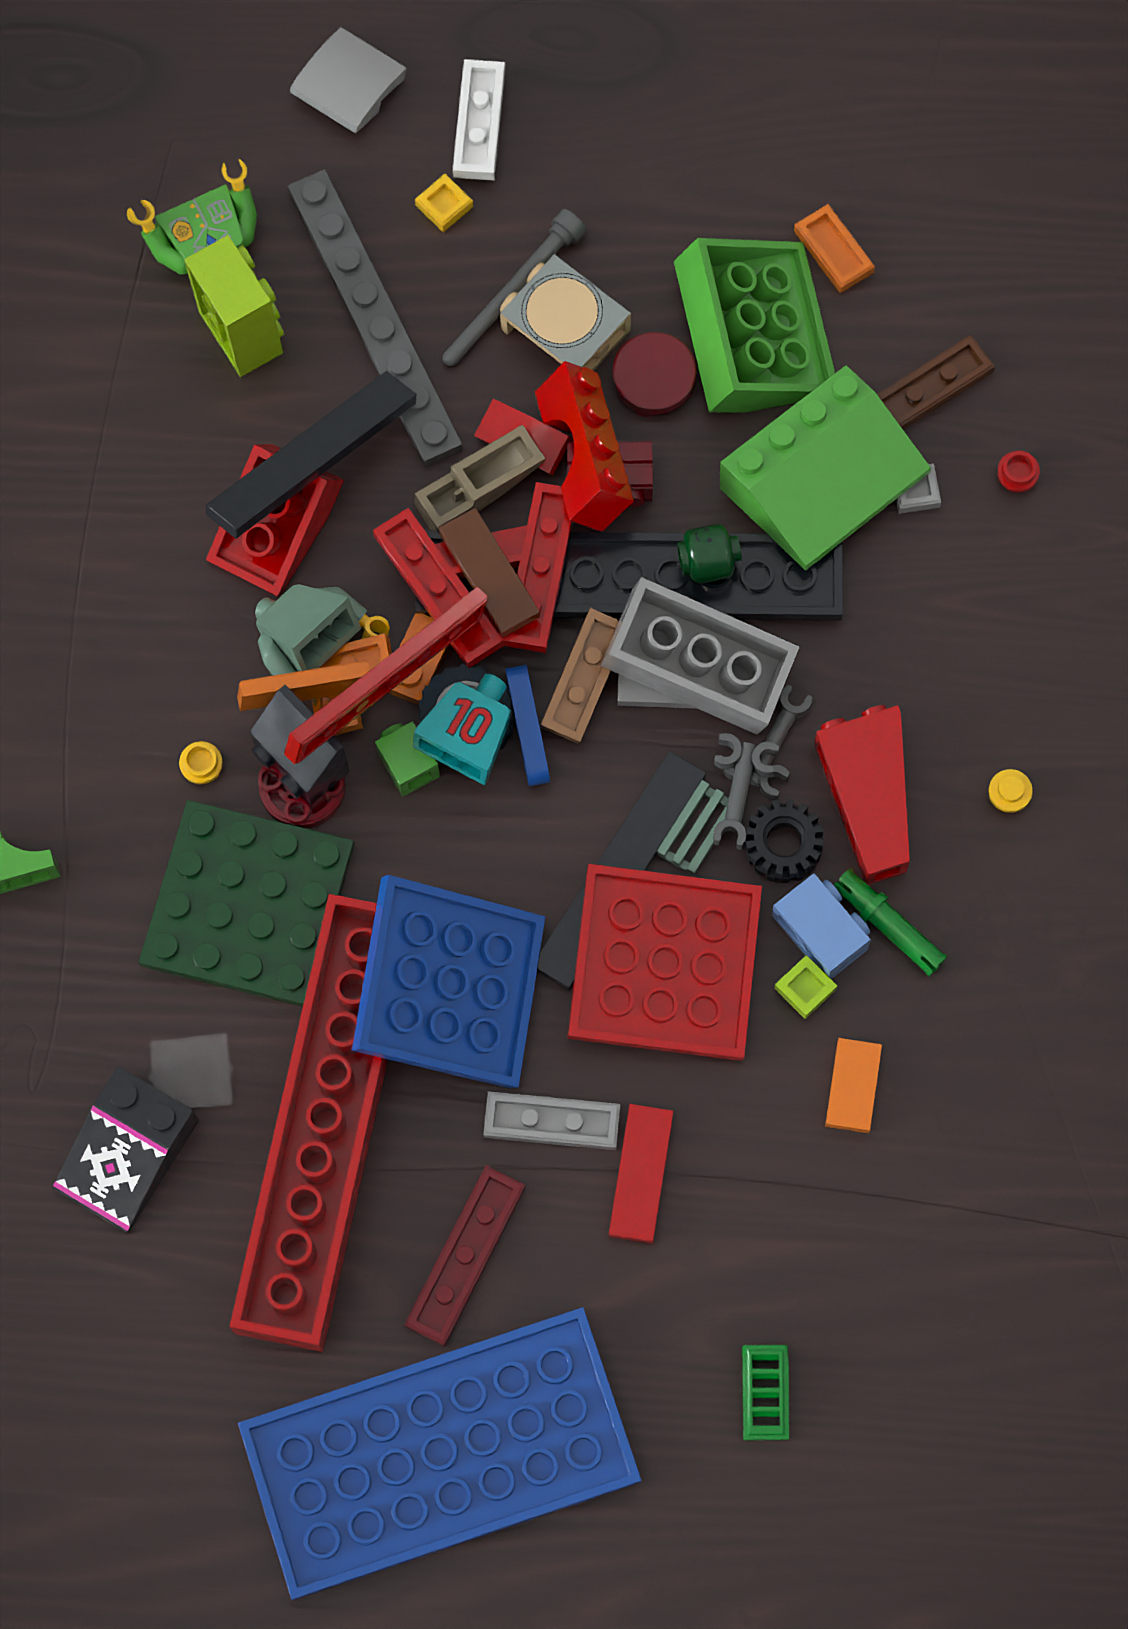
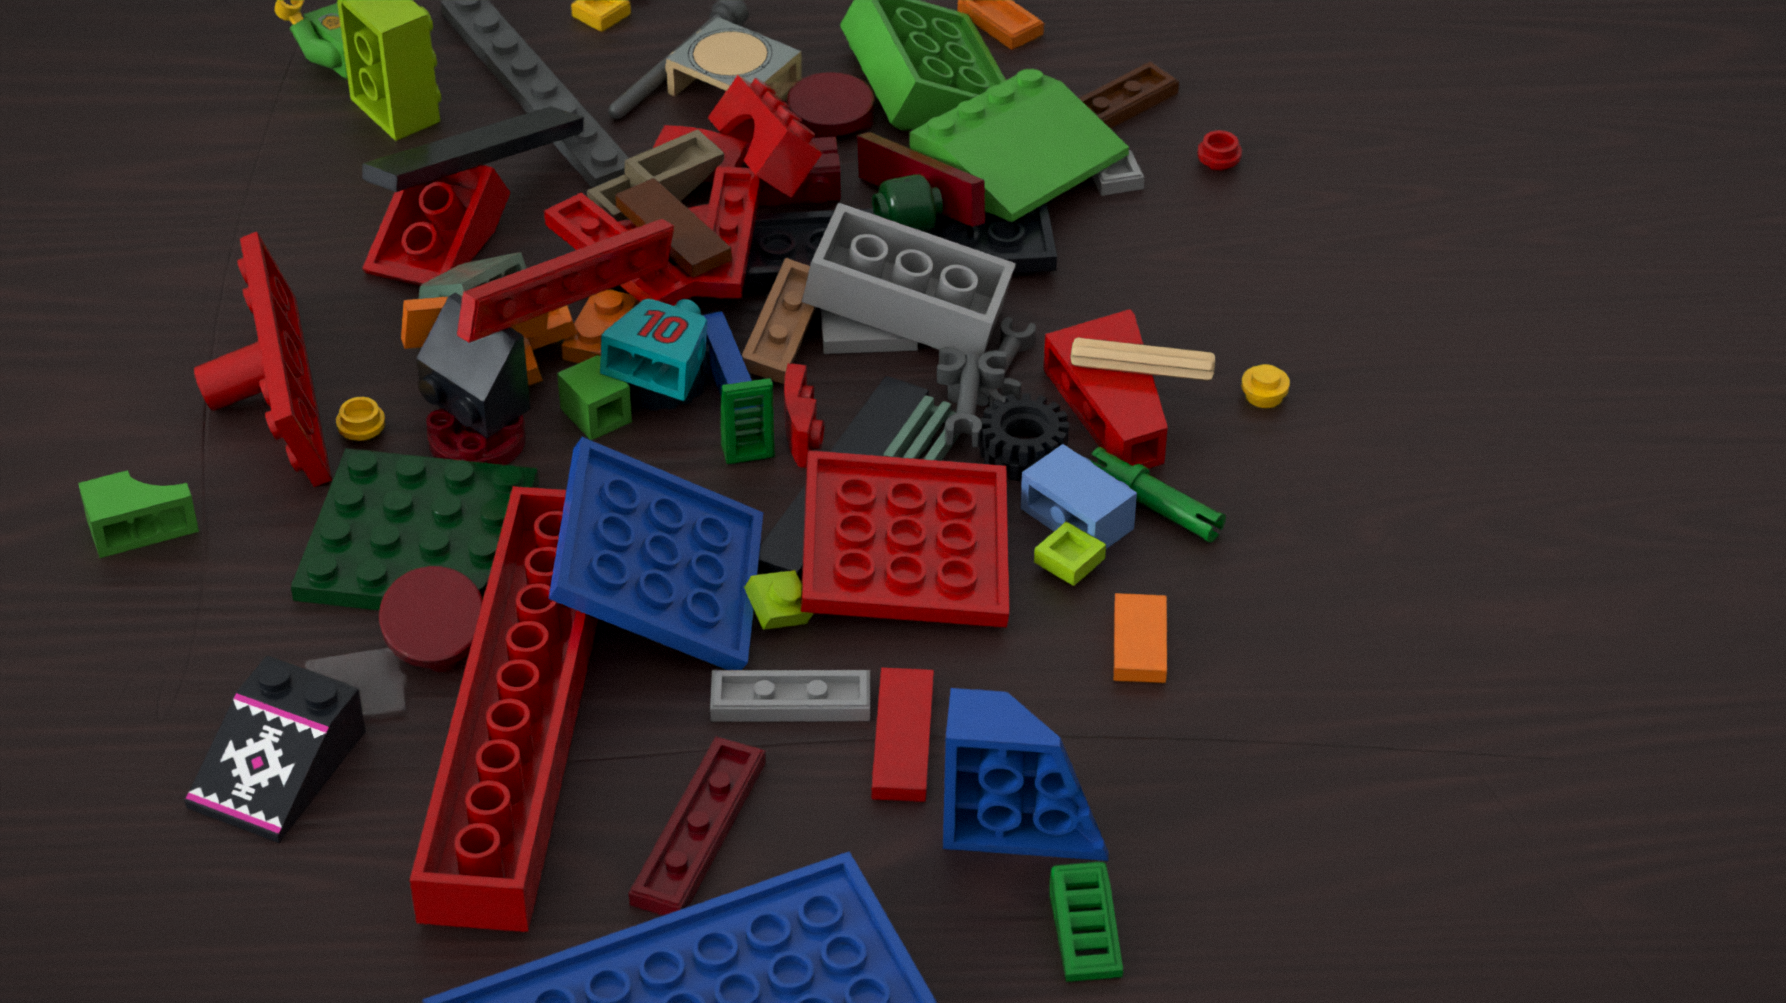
camera: 10 degrees left, 30 degrees down
(126, 701) = (271, 365): none -> red plate
(256, 1019) = (430, 617): none -> dark red tile
(539, 818) = (748, 431): none -> green slope
(548, 1019) = (777, 599): none -> lime plate
(588, 807) = (801, 421): none -> red slope
(718, 1270) = (1012, 783): none -> blue wedge
(726, 508) = (961, 192): none -> dark red tile
(898, 781) = (1143, 359): none -> tan axle

